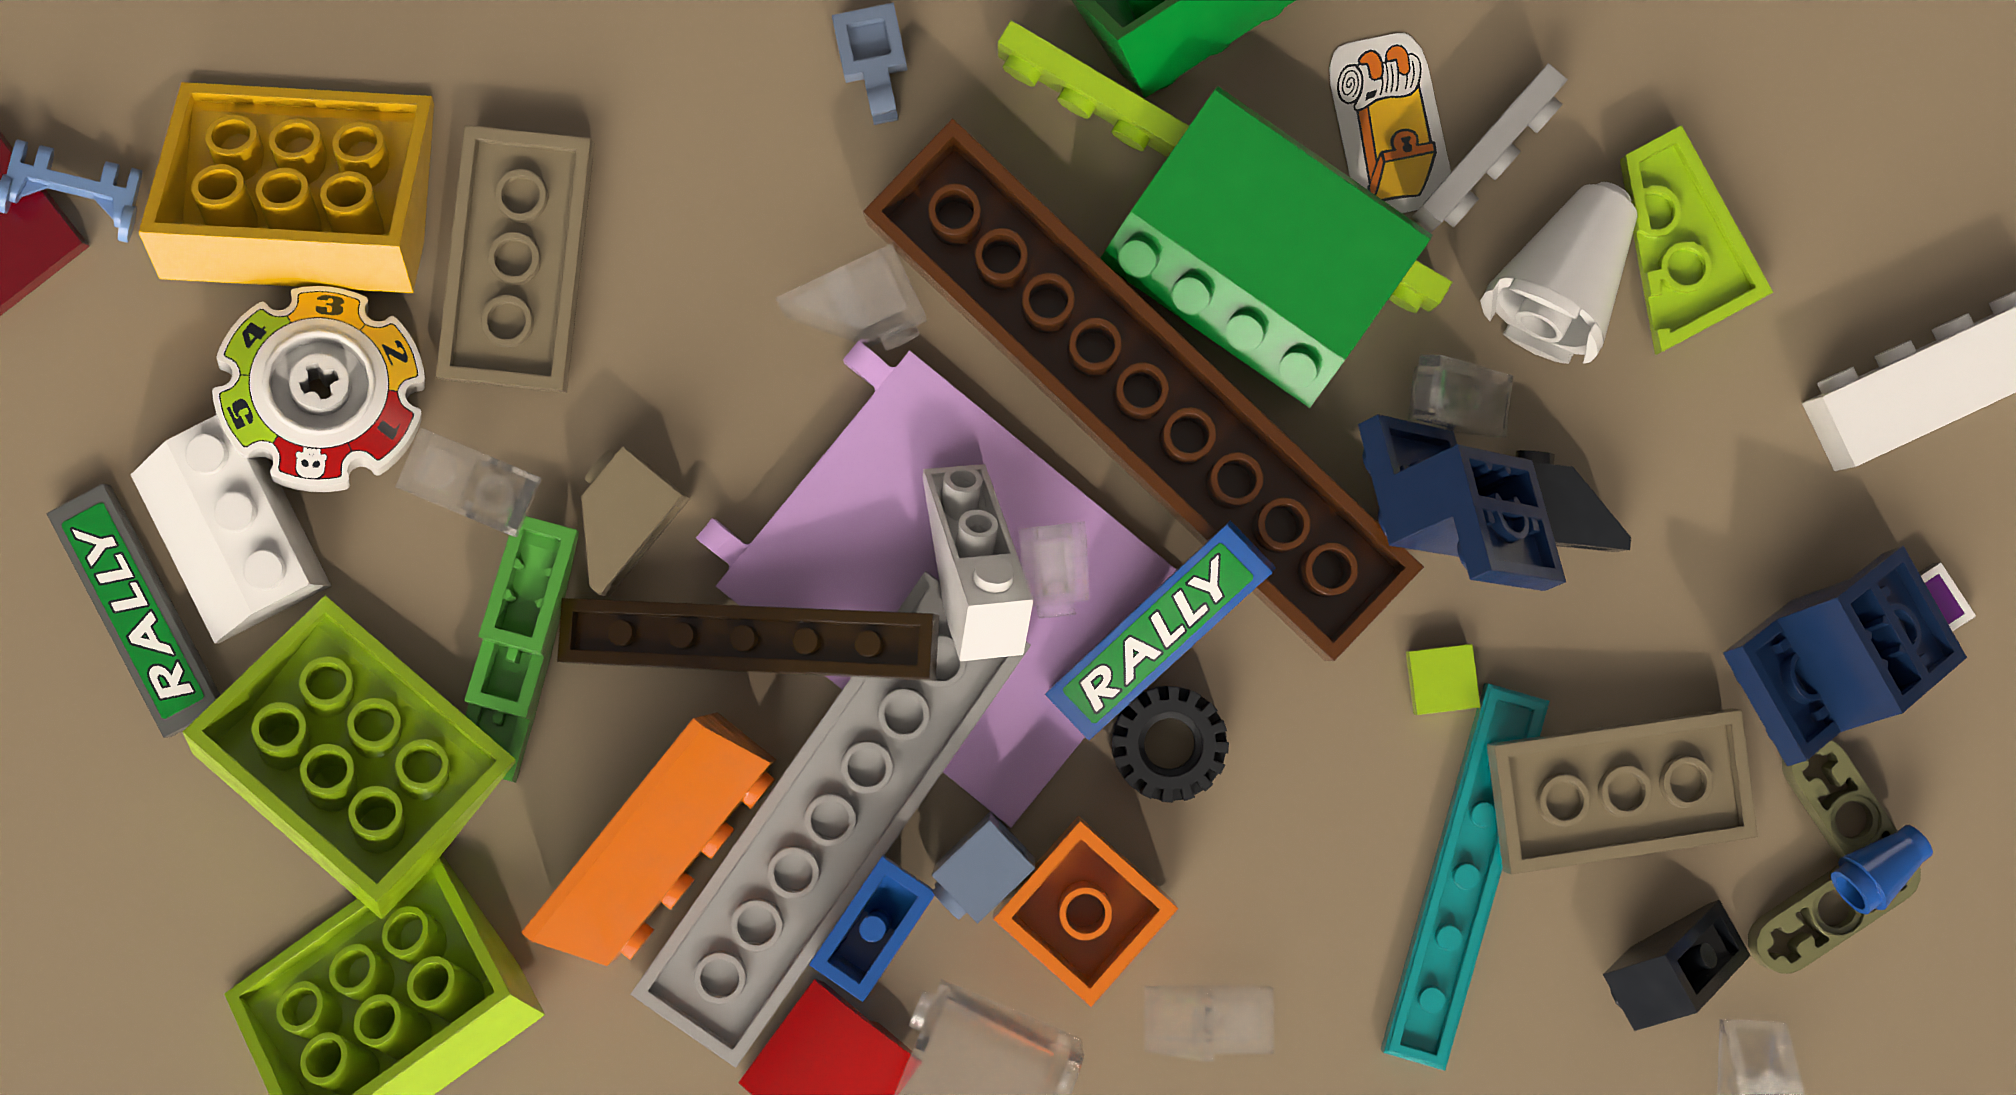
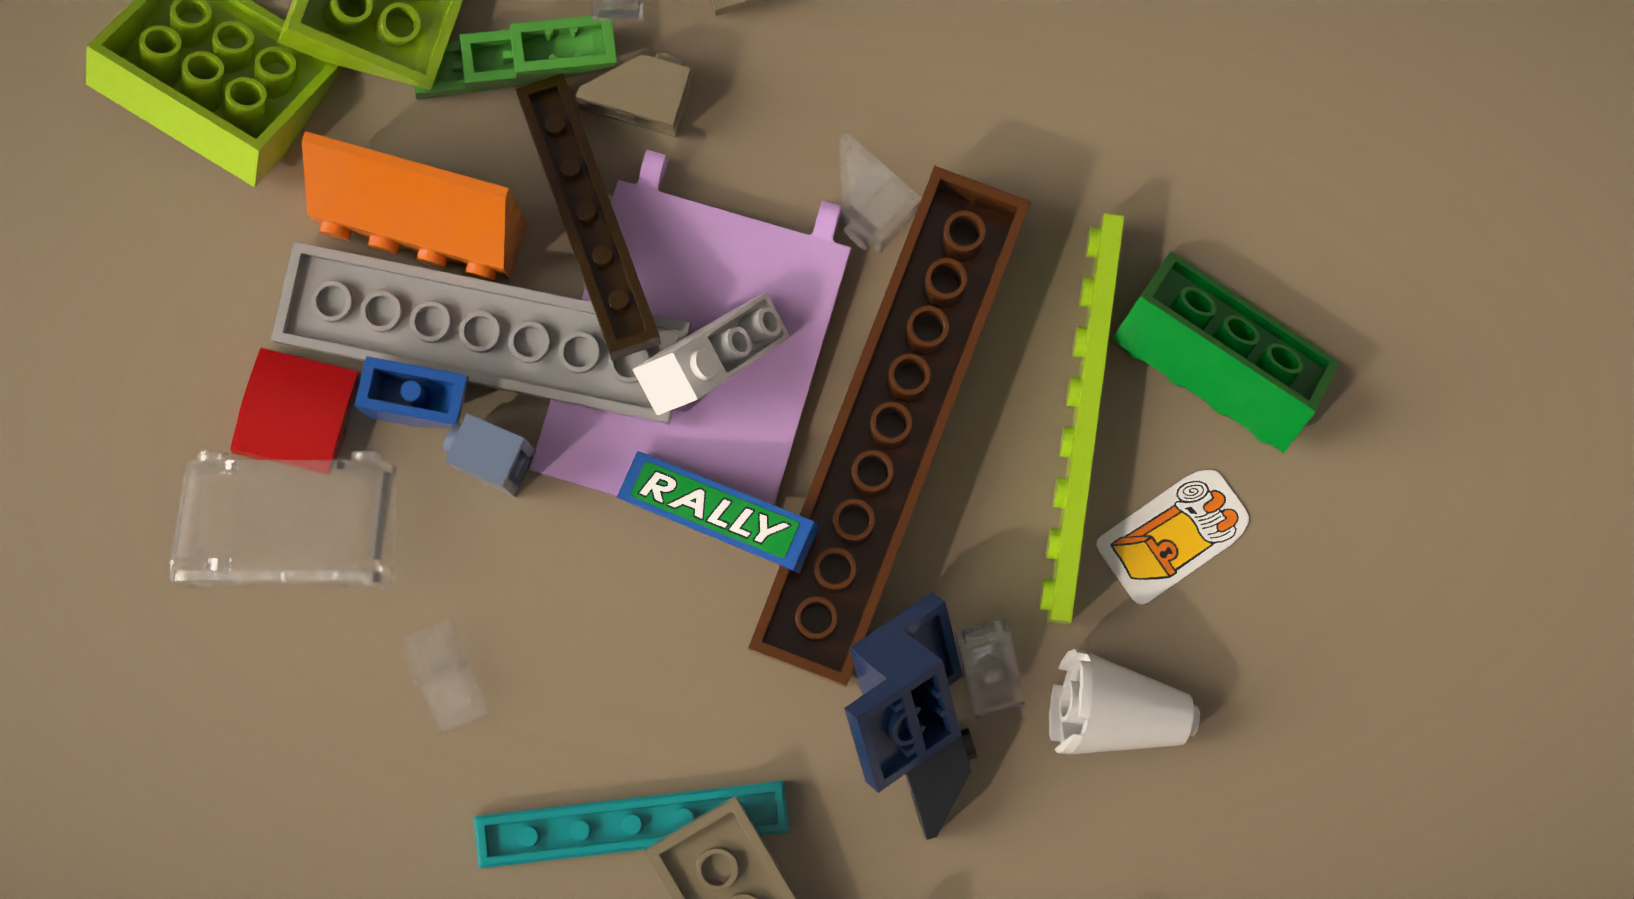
camera: 65 degrees right, 5 degrees down
(871, 51) = (1059, 127): sand blue plate -> none
(1054, 566) = (732, 413): clear slope -> none
(1084, 911) = (488, 543): orange brick -> none
(1197, 771) = (607, 559): black tyre -> none
(1264, 247) = (1034, 469): green slope -> none
(1443, 679) = (772, 745): lime tile -> none
(1493, 151) = (1186, 615): light grey plate -> none
(1686, 242) = (1181, 793): lime wing -> none

